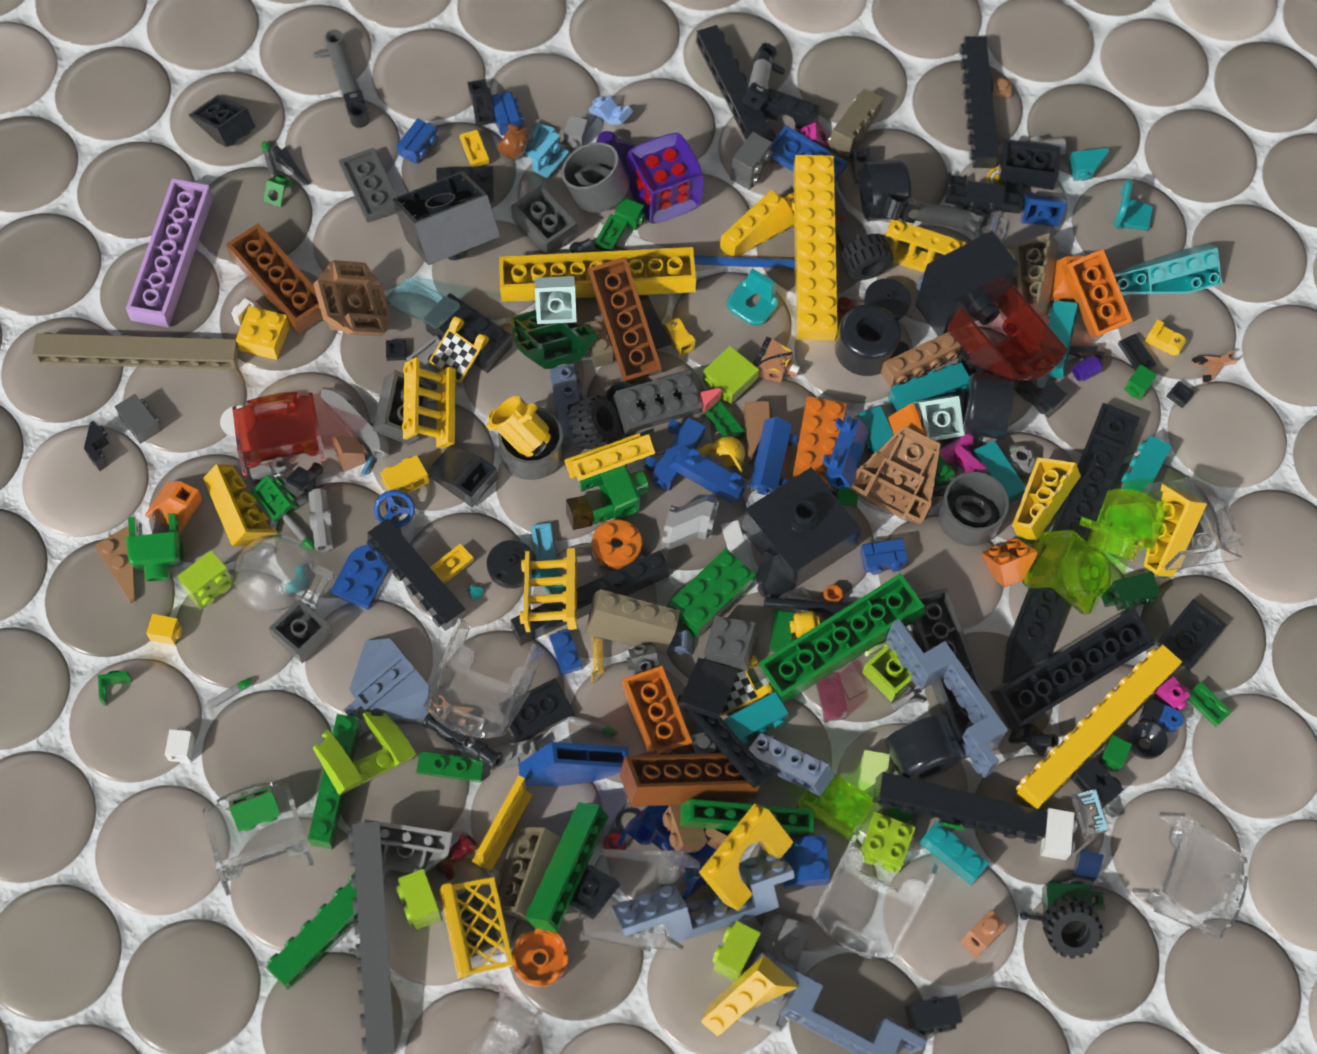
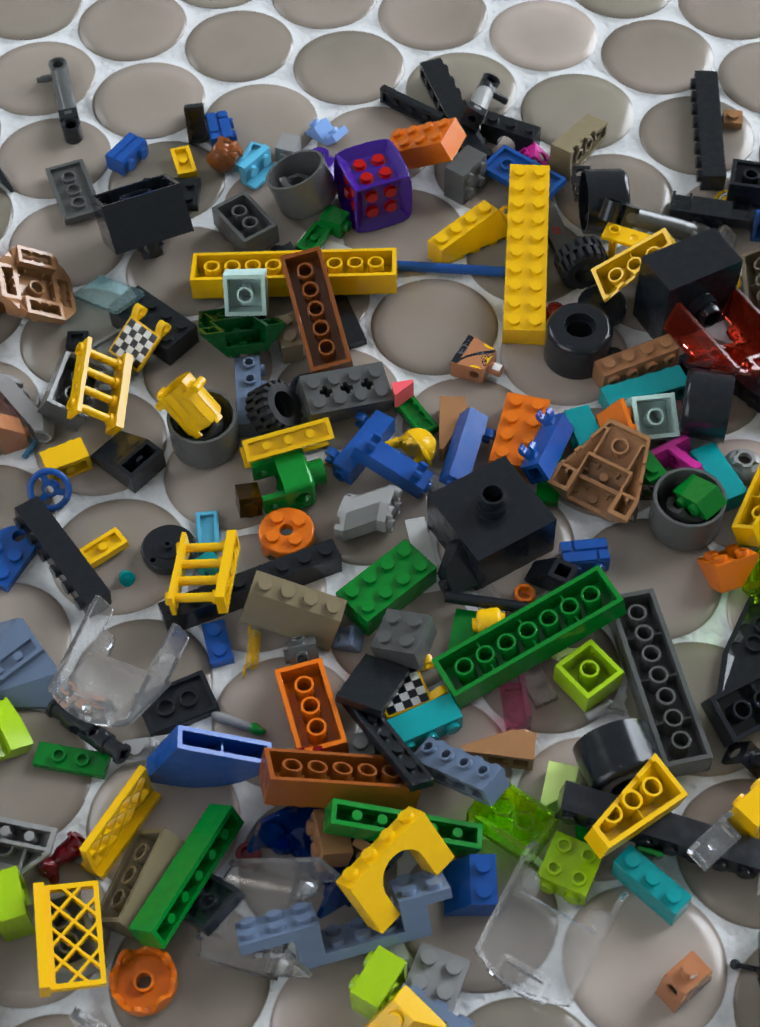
camera: 10 degrees right, 10 degrees down
(679, 337) = (376, 334): yellow leg -> none
(692, 81) = (409, 106): none -> black tile
(713, 129) = (429, 142): none -> orange brick
(731, 374) = (428, 370): lime brick -> none
(747, 288) = (463, 286): teal piece -> none
(829, 740) = (507, 749): none -> medium nougat slope
(856, 576) = (551, 573): none -> black slope
(909, 268) = (625, 266): none -> yellow wedge
(942, 663) = (639, 665): sand blue bracket -> none
(948, 788) = (641, 803): none -> yellow wedge
(984, 500) = (699, 497): none -> green brick
(1006, 817) = (714, 842): none -> clear panel

